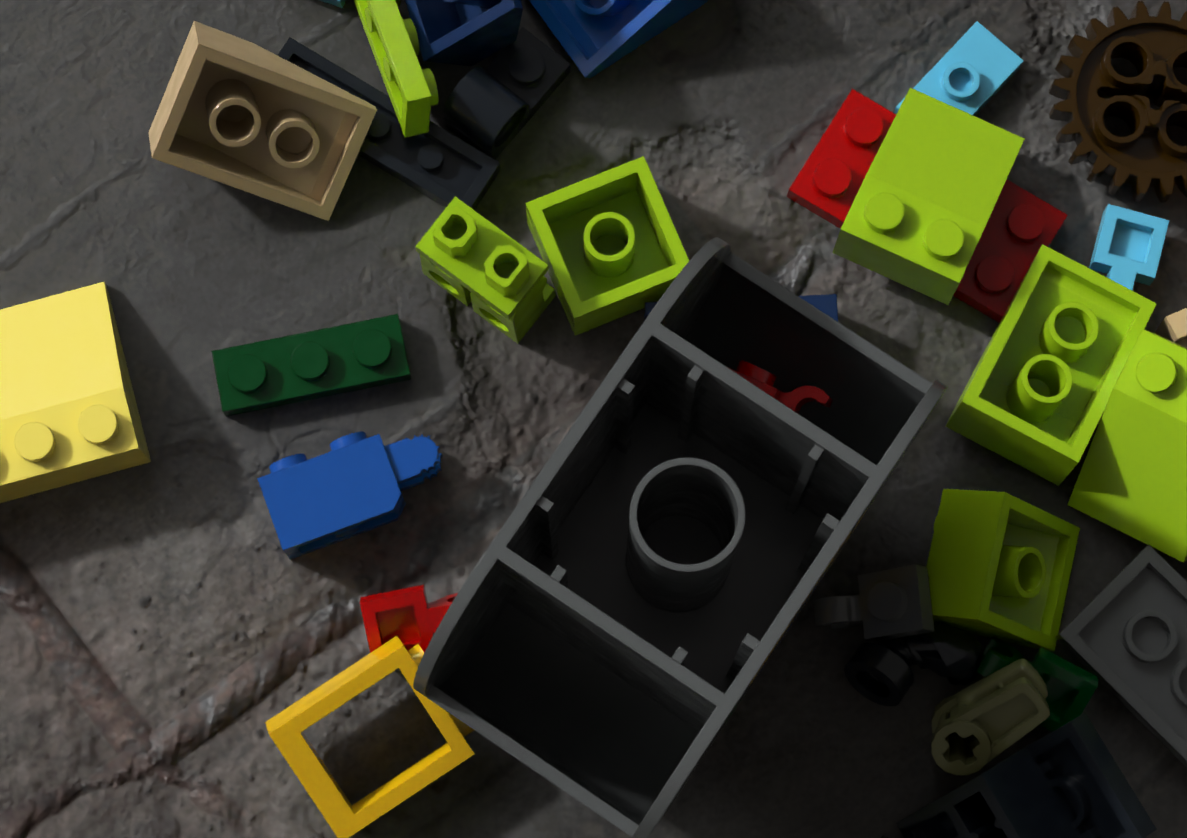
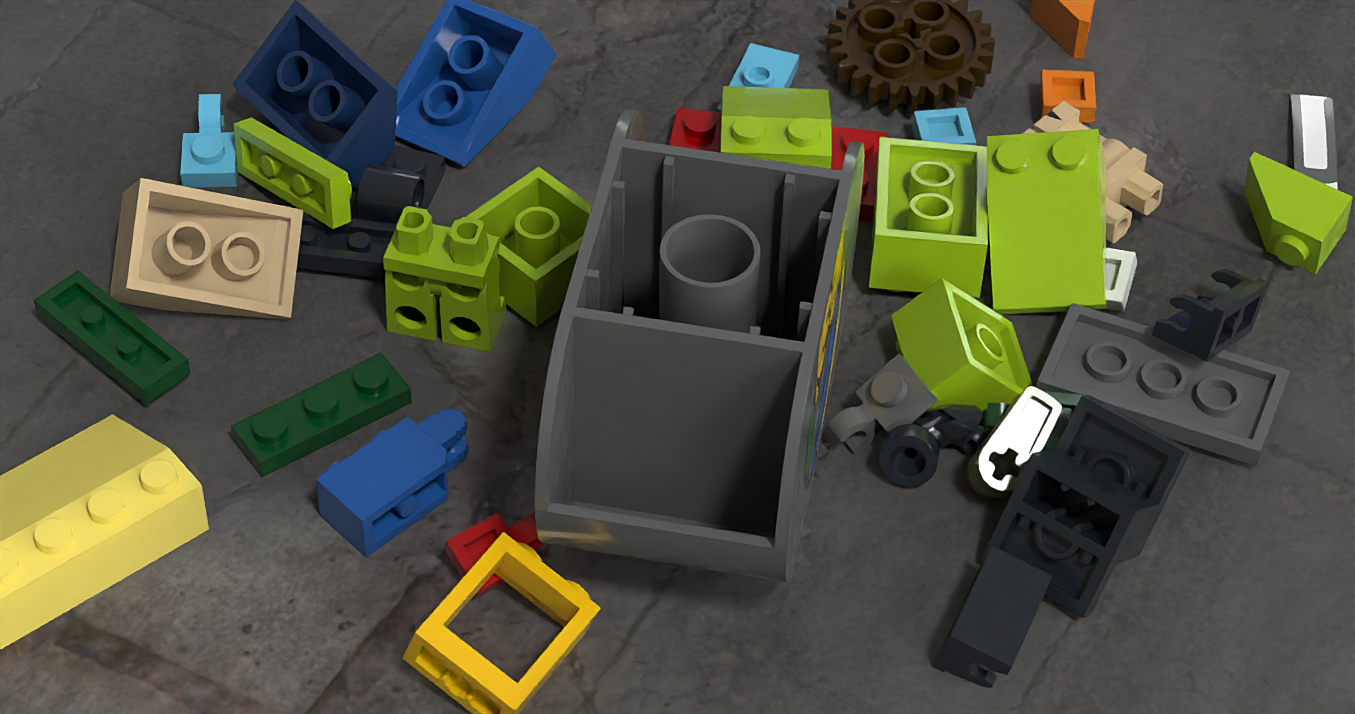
camera: 25 degrees left, 30 degrees down
(134, 184) = (112, 337): none -> dark green plate

